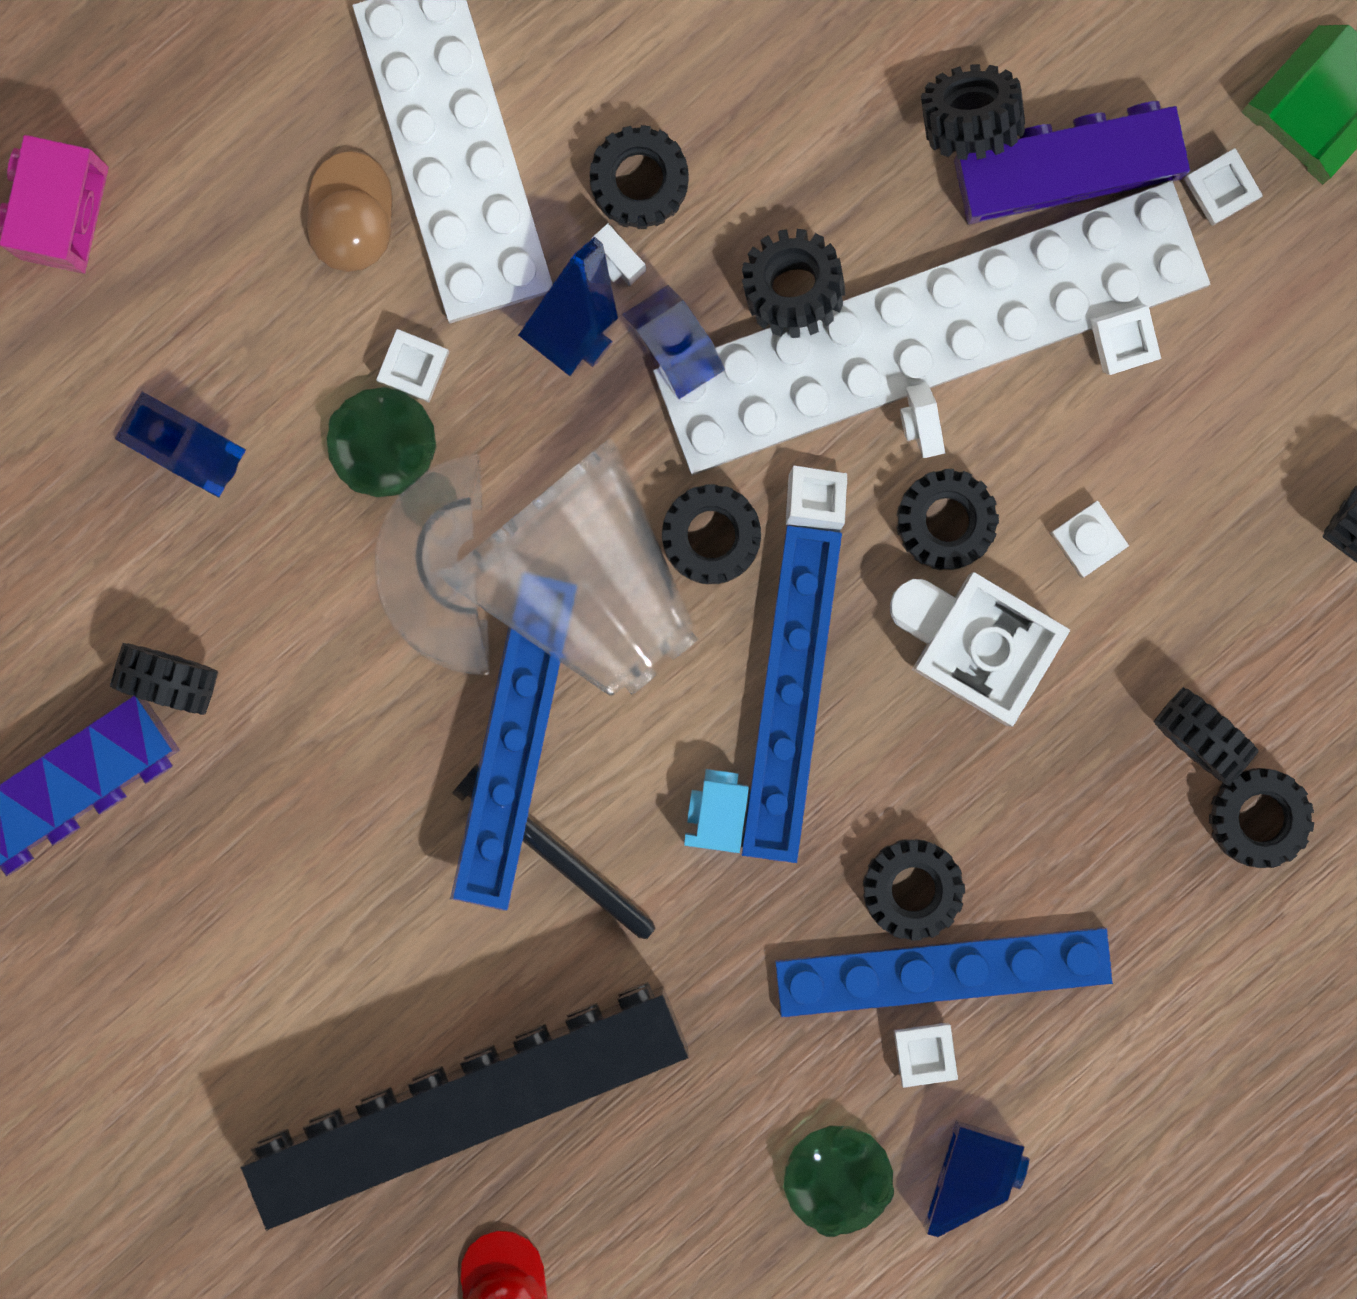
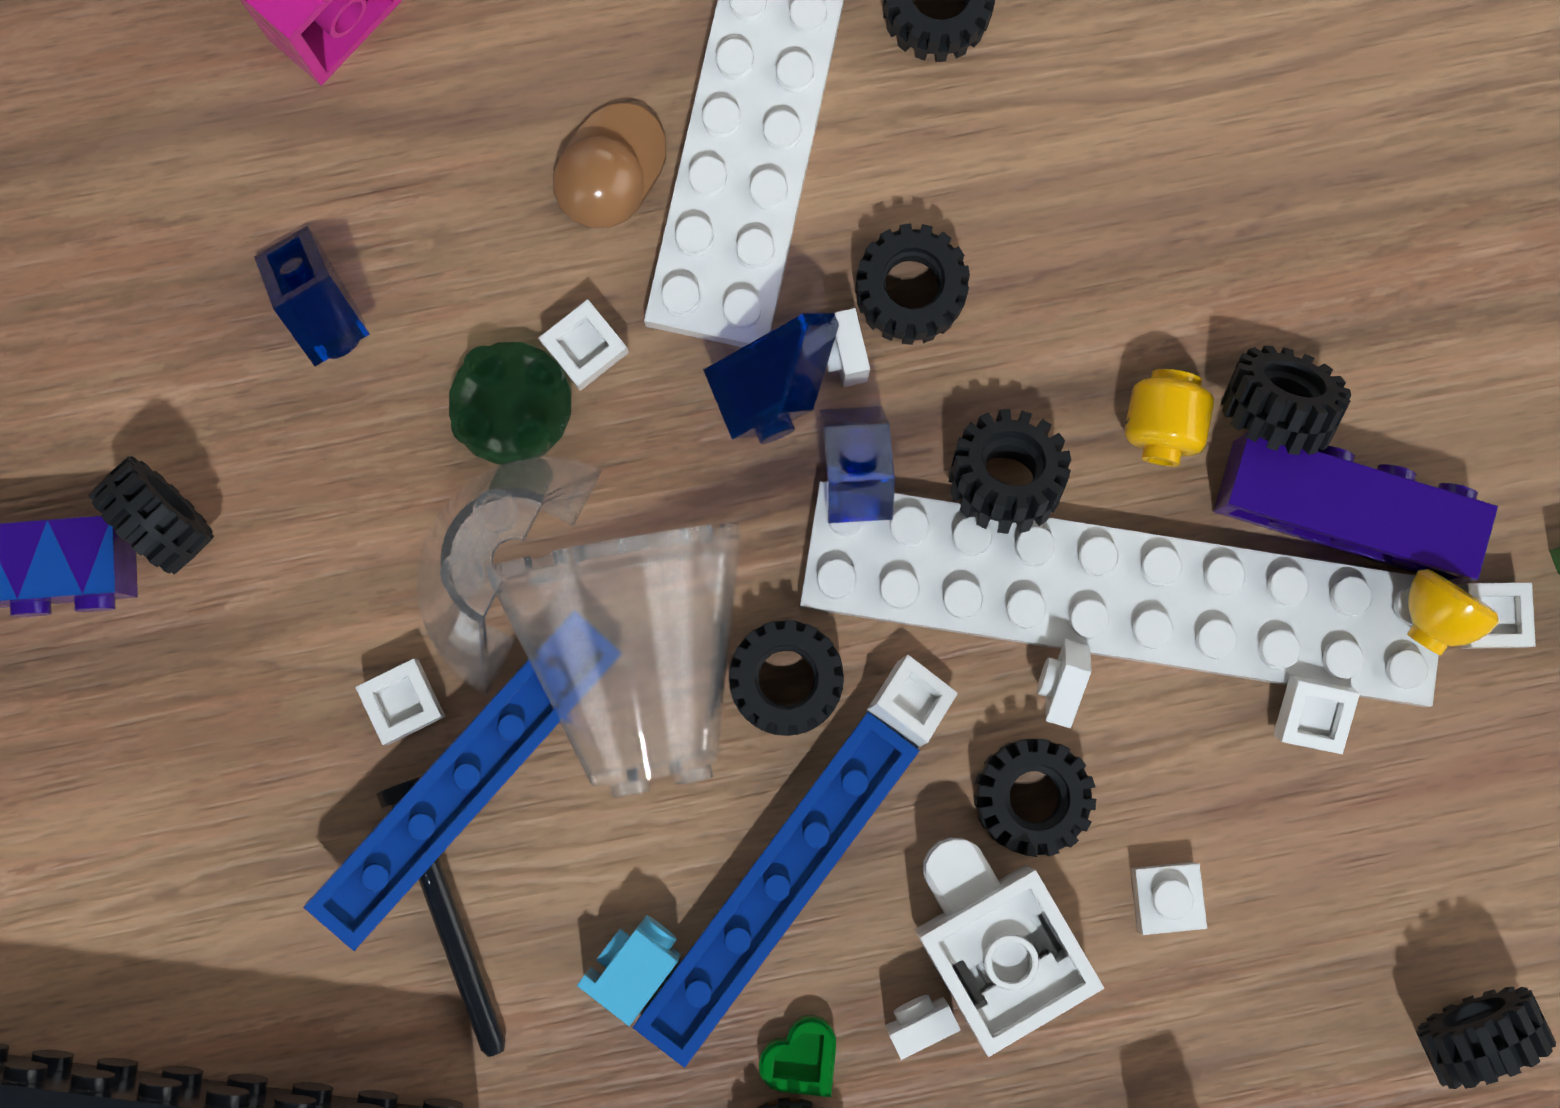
camera: 30 degrees right, 5 degrees down
(430, 715) = (400, 702): none -> white plate
(881, 810) = (802, 1059): none -> green tile
(893, 172) = (1169, 416): none -> yellow head
(953, 734) = (921, 1025): none -> white plate
(1179, 209) = (1446, 613): none -> yellow brick

